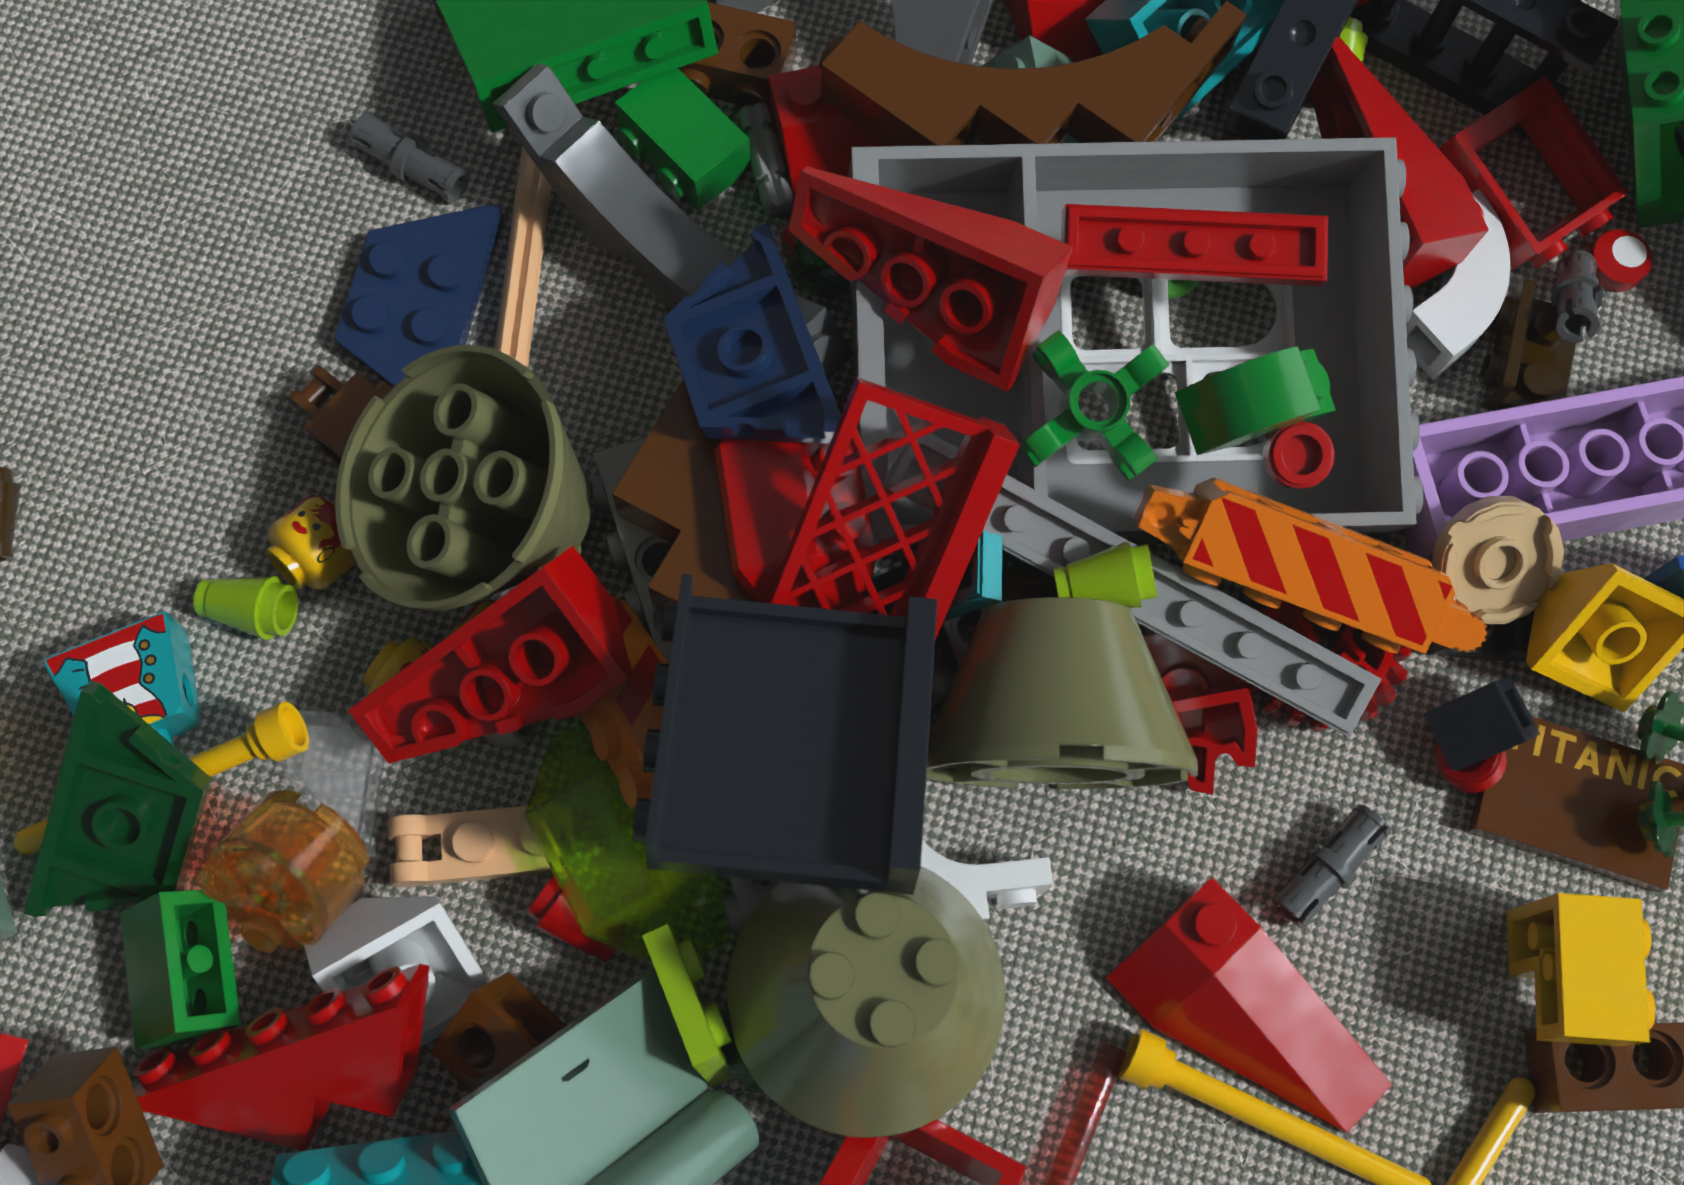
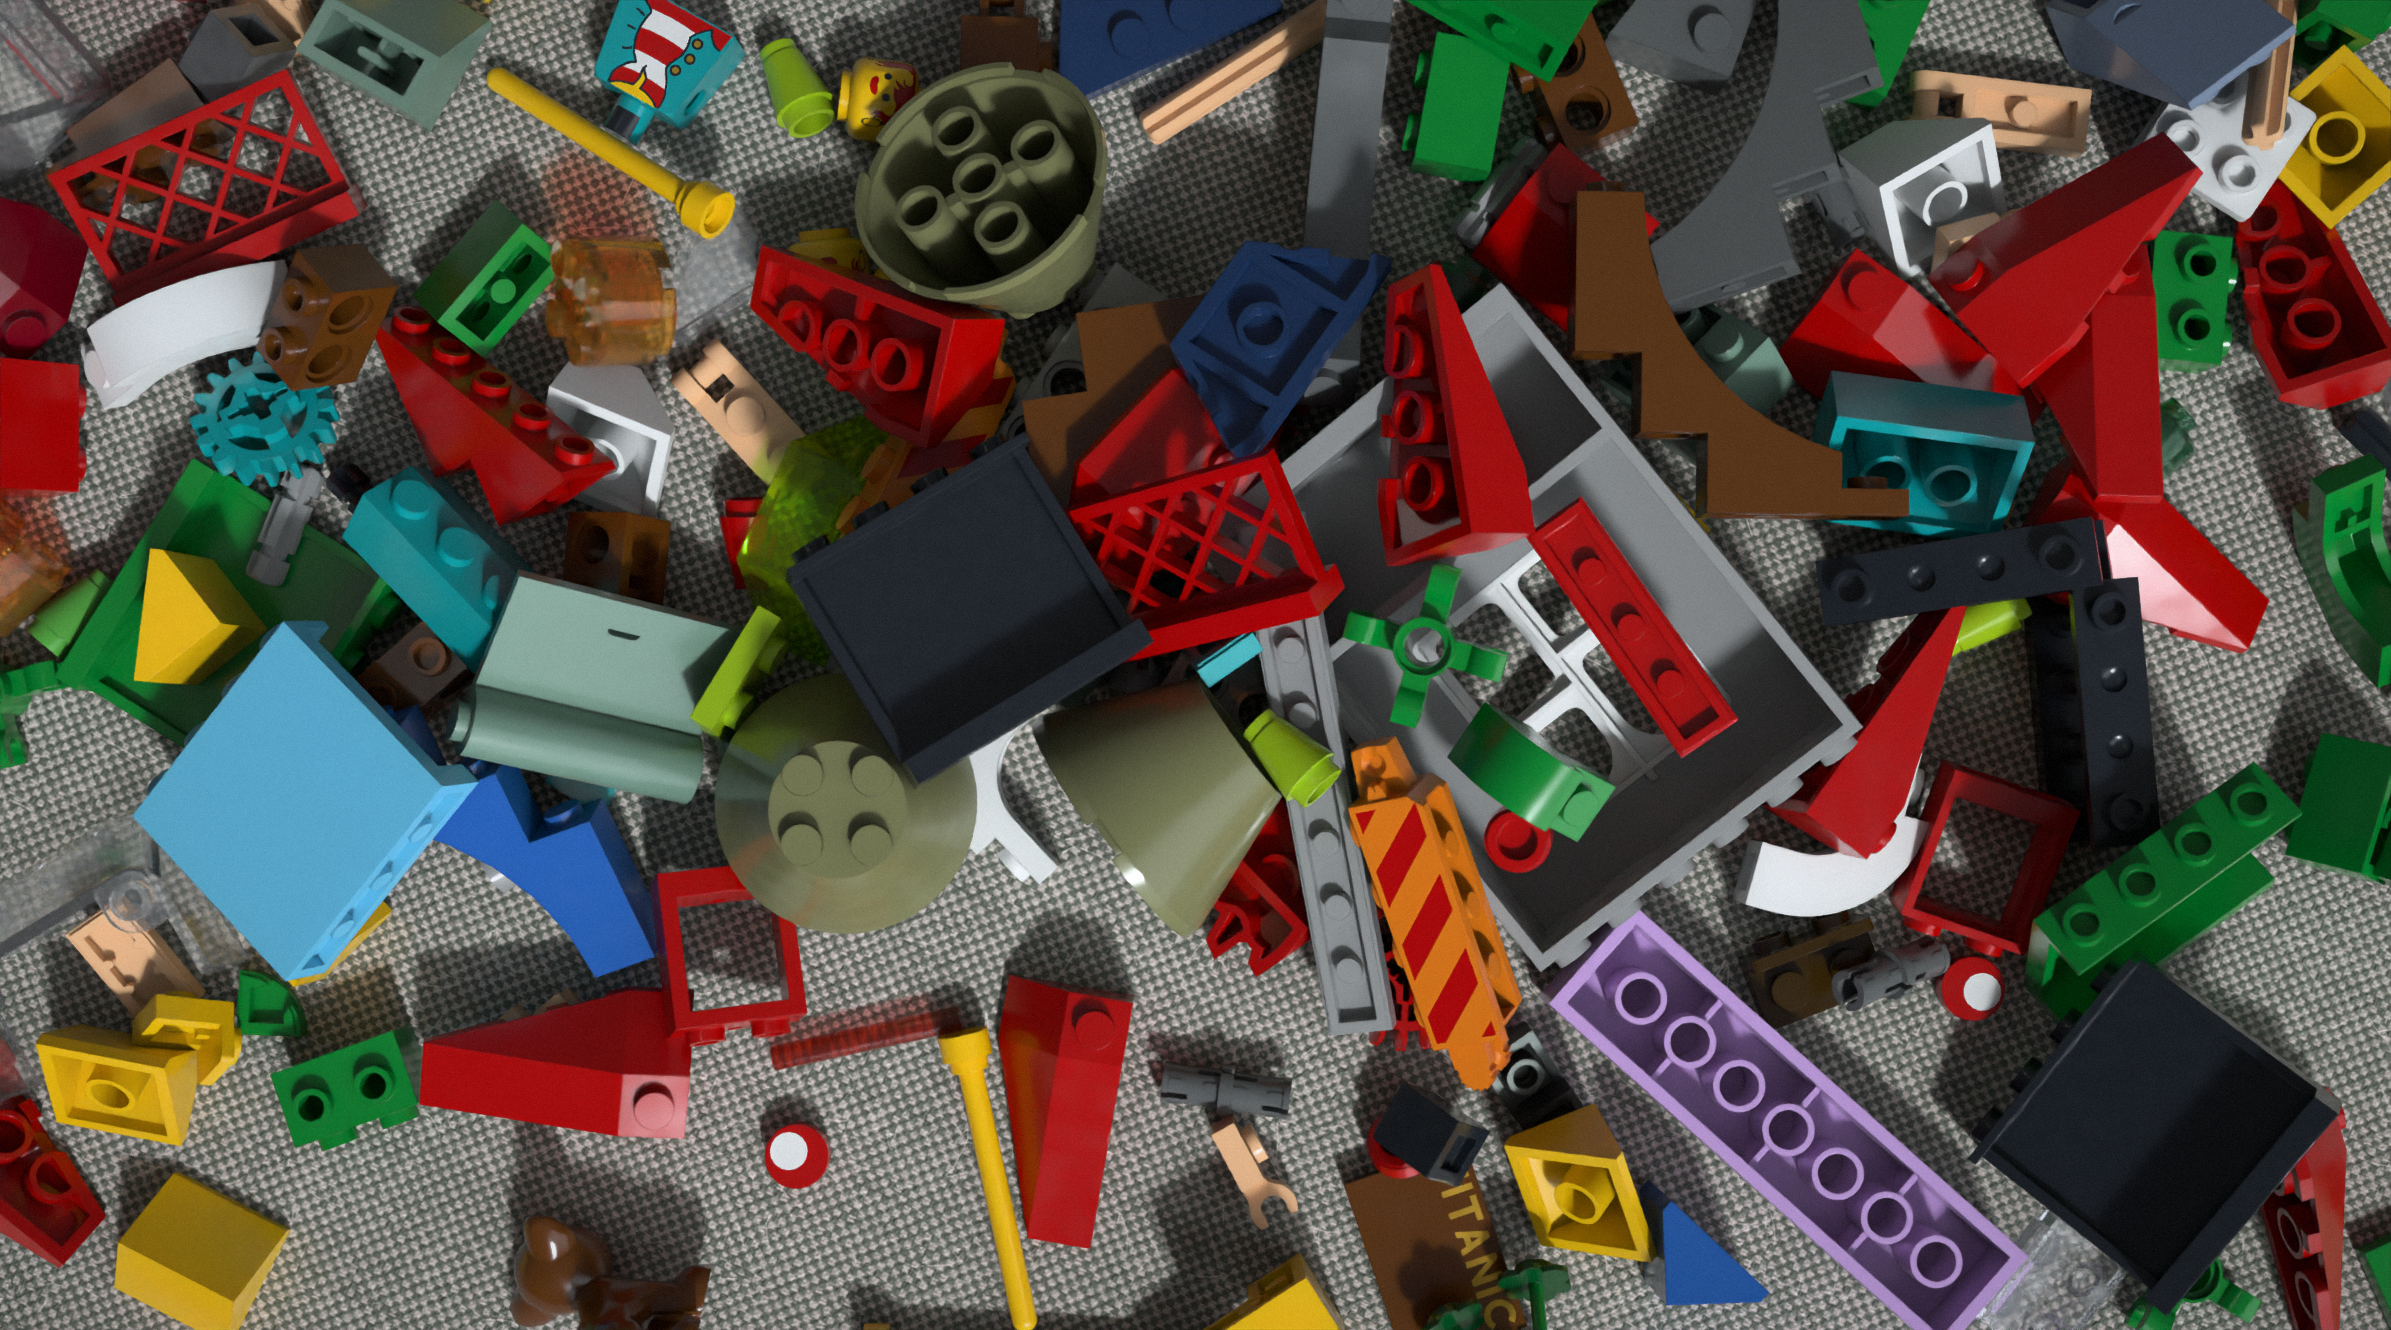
camera: 55 degrees right, 15 degrees up
(117, 813) = (559, 138): dark green wing -> none
(1396, 891) = (1243, 1154): none -> light nougat plate
(1499, 557) = (1572, 1057): tan tile -> none

